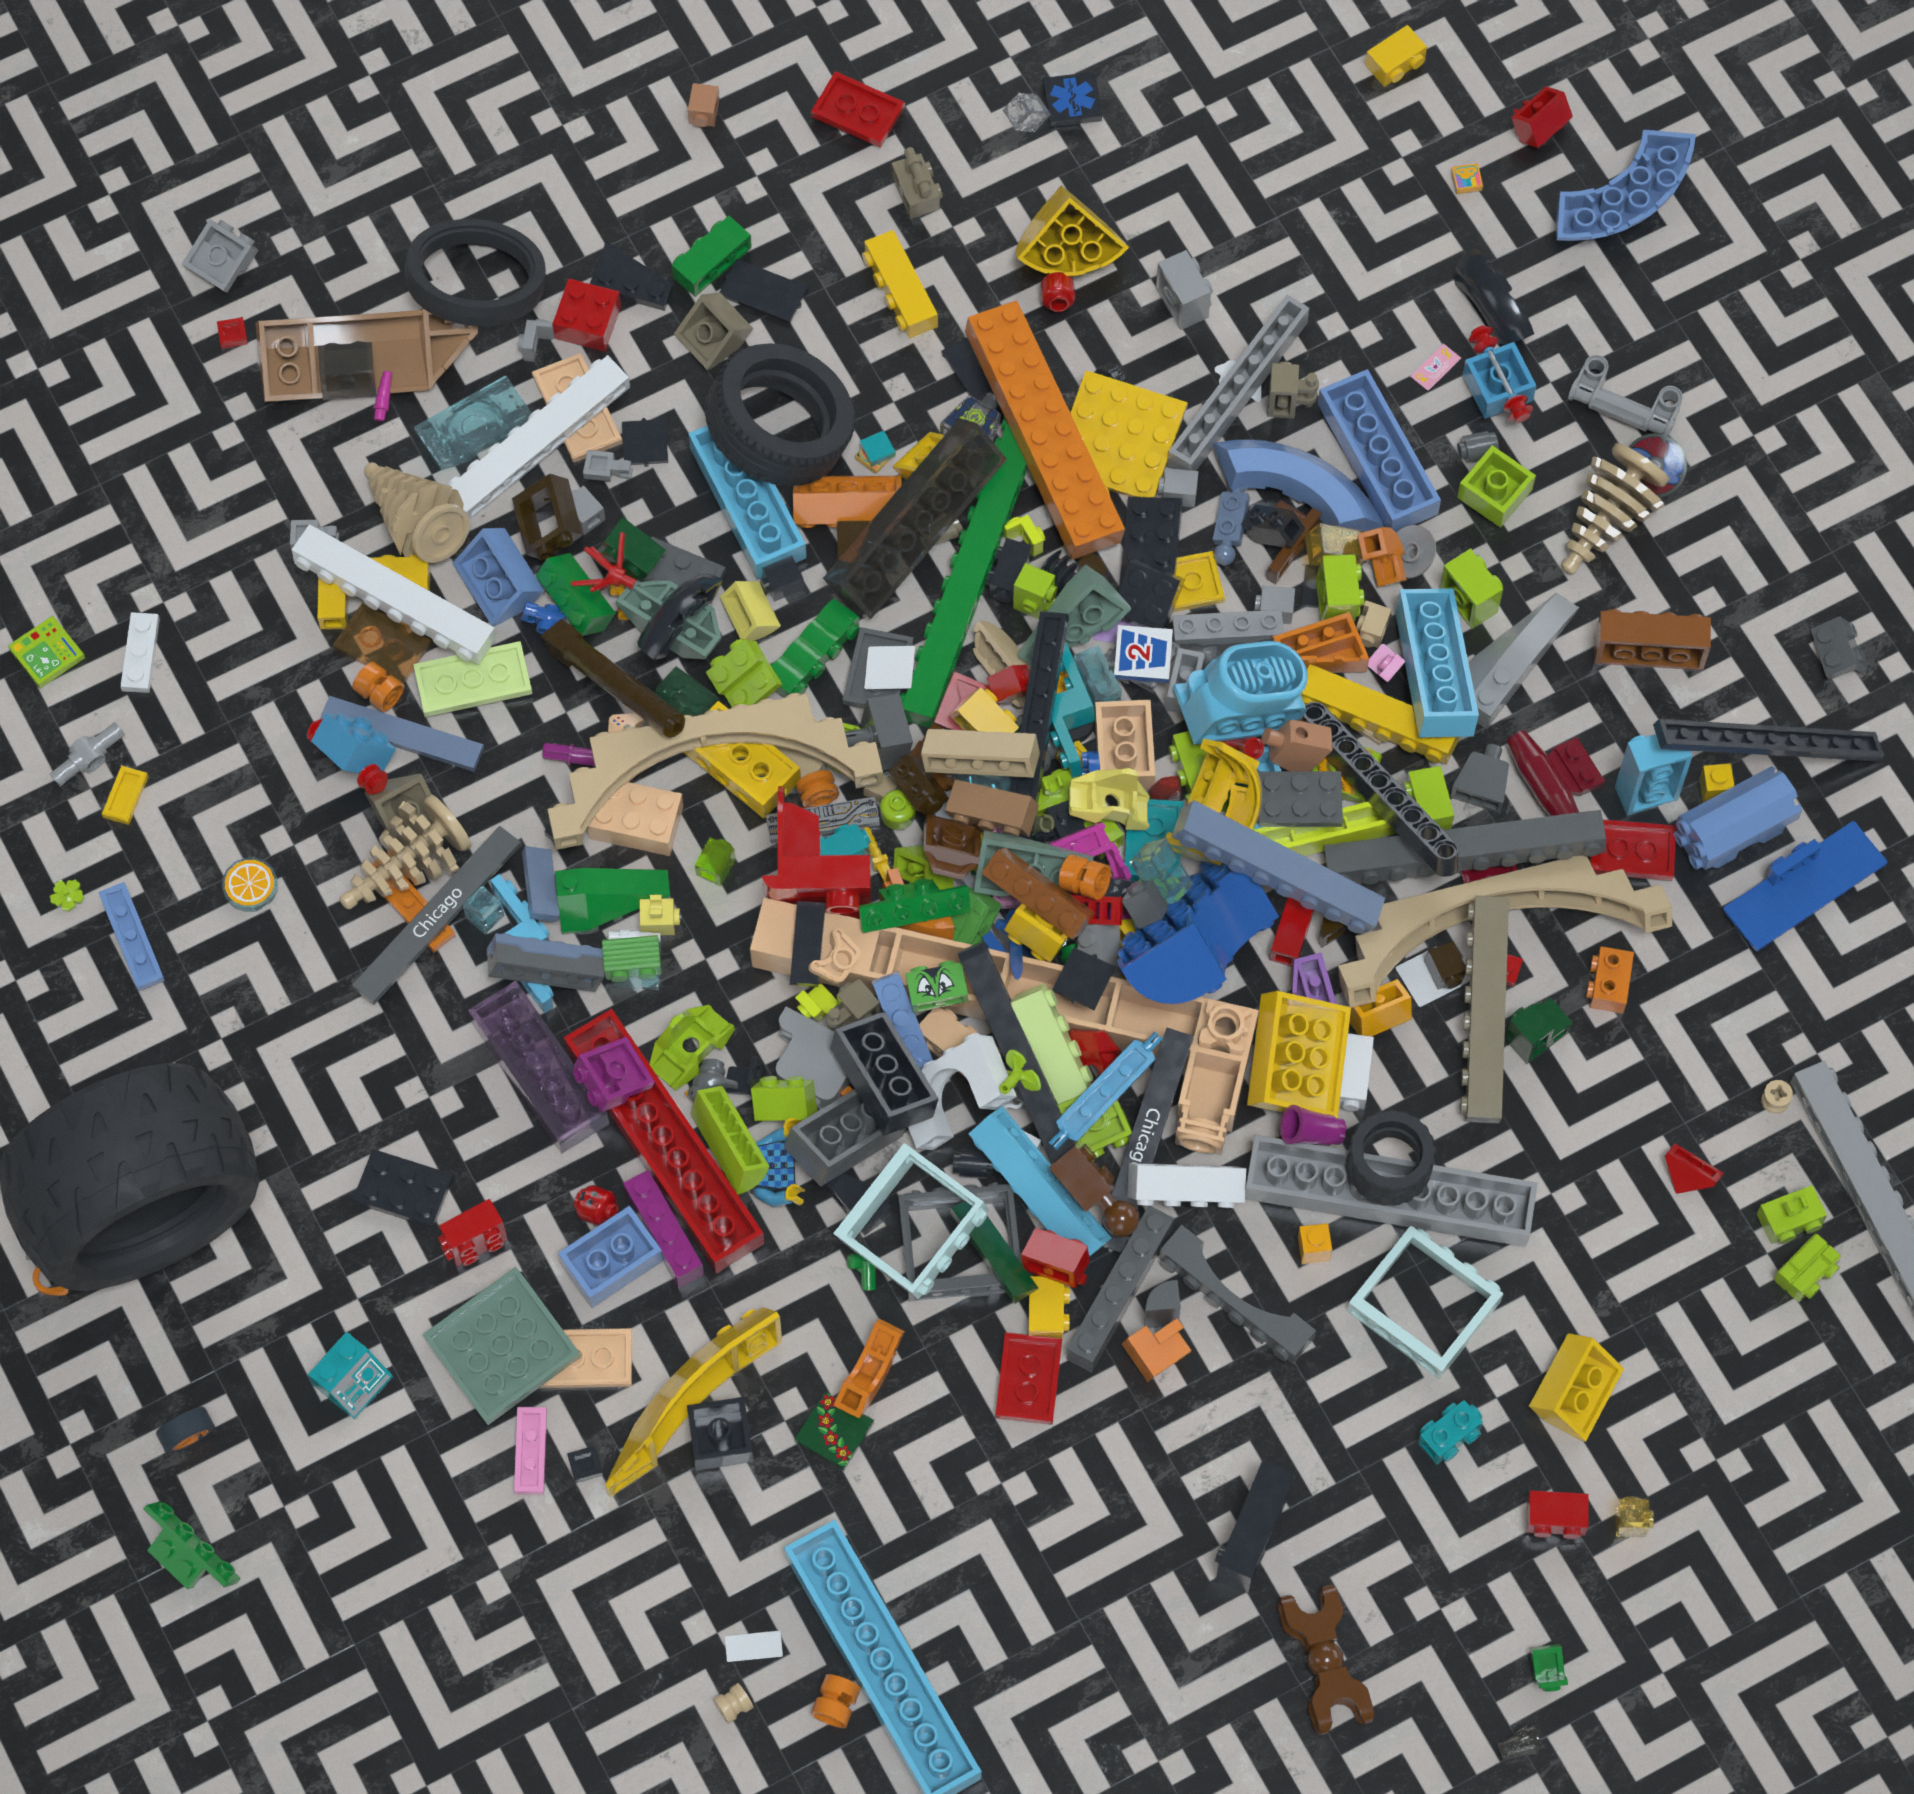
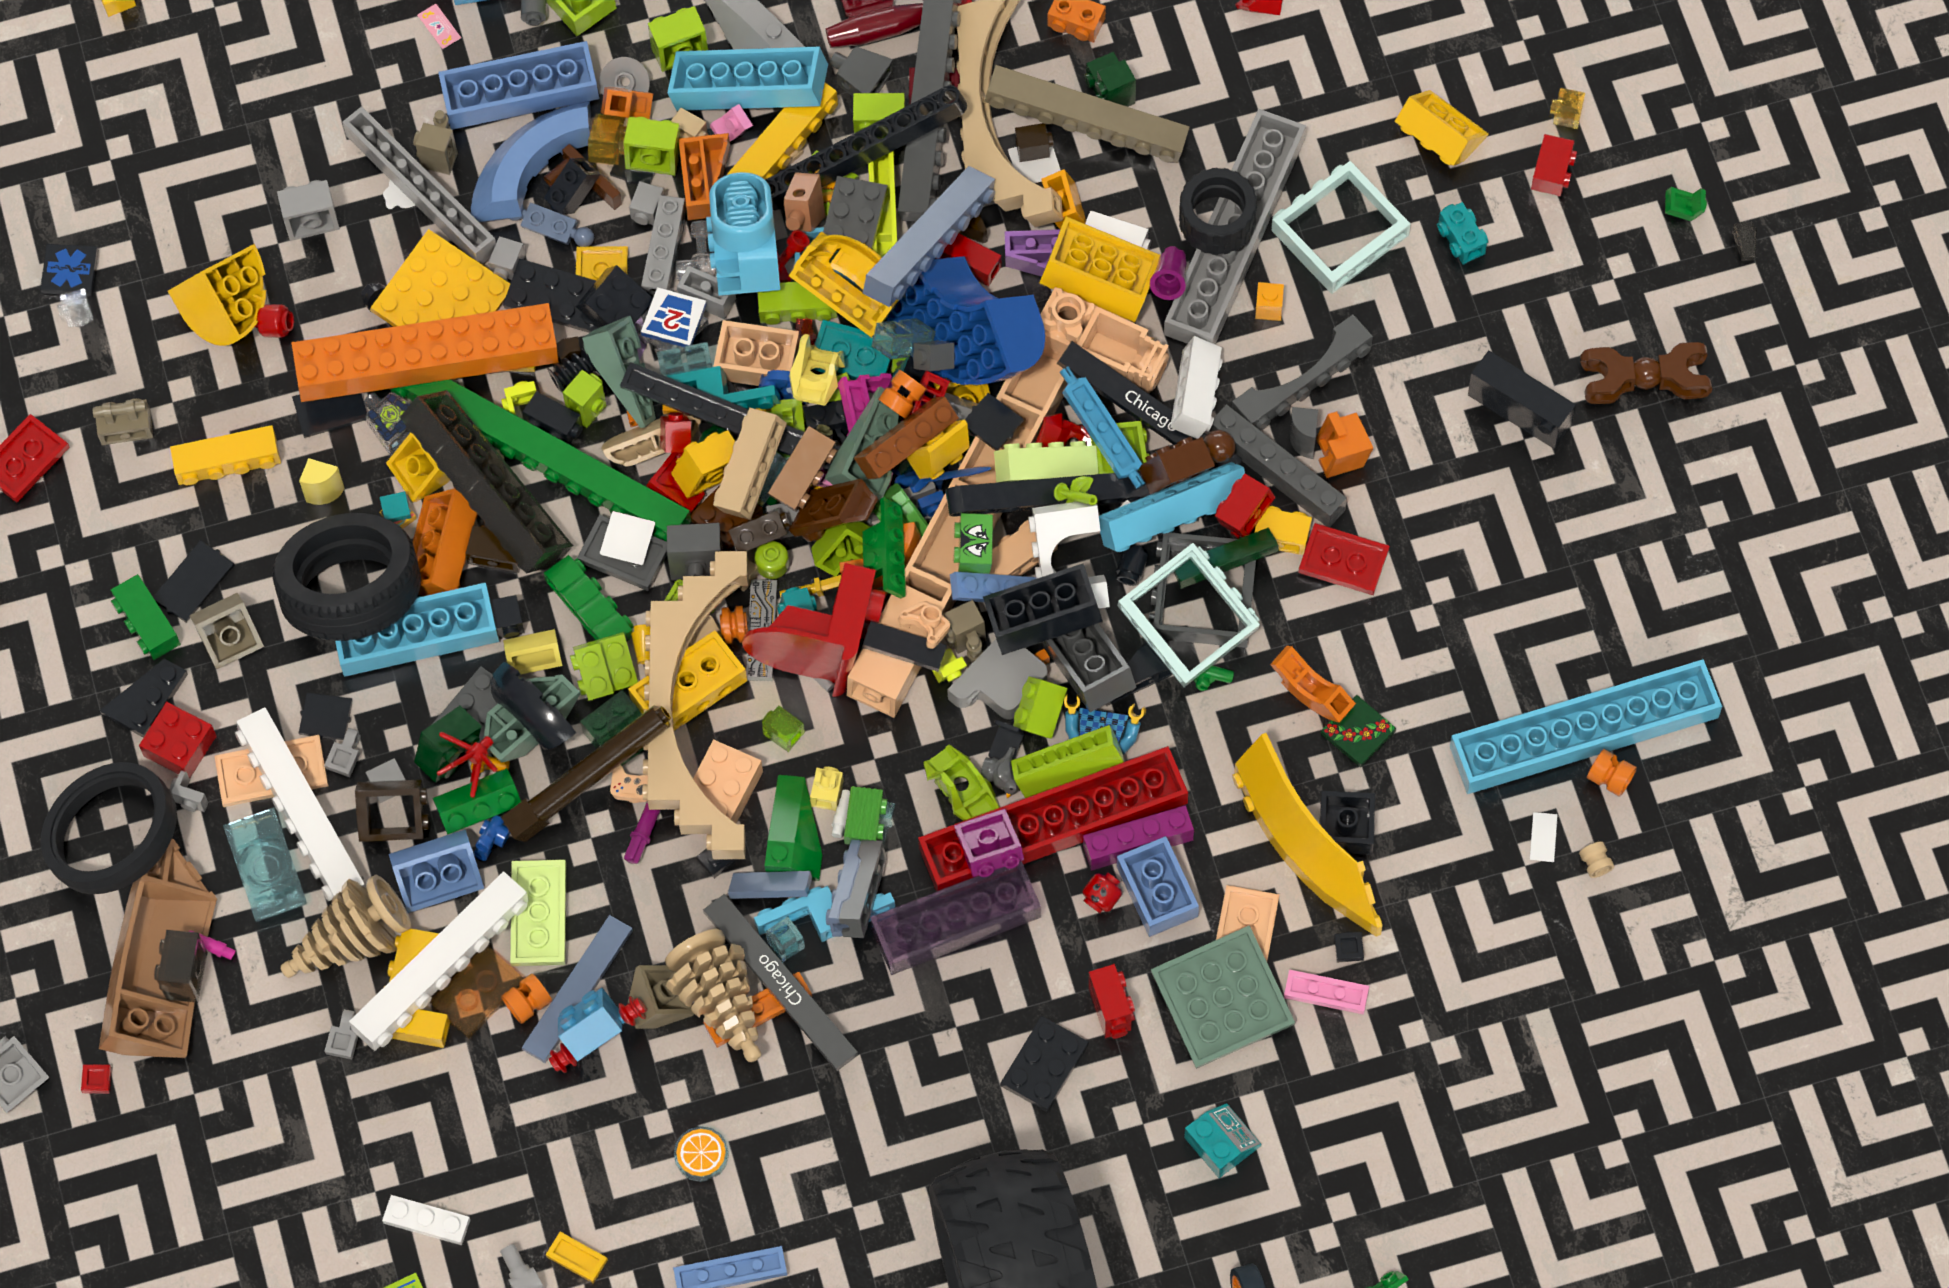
camera: 75 degrees left, 0 degrees up
(885, 371) = (321, 482): none -> light yellow brick

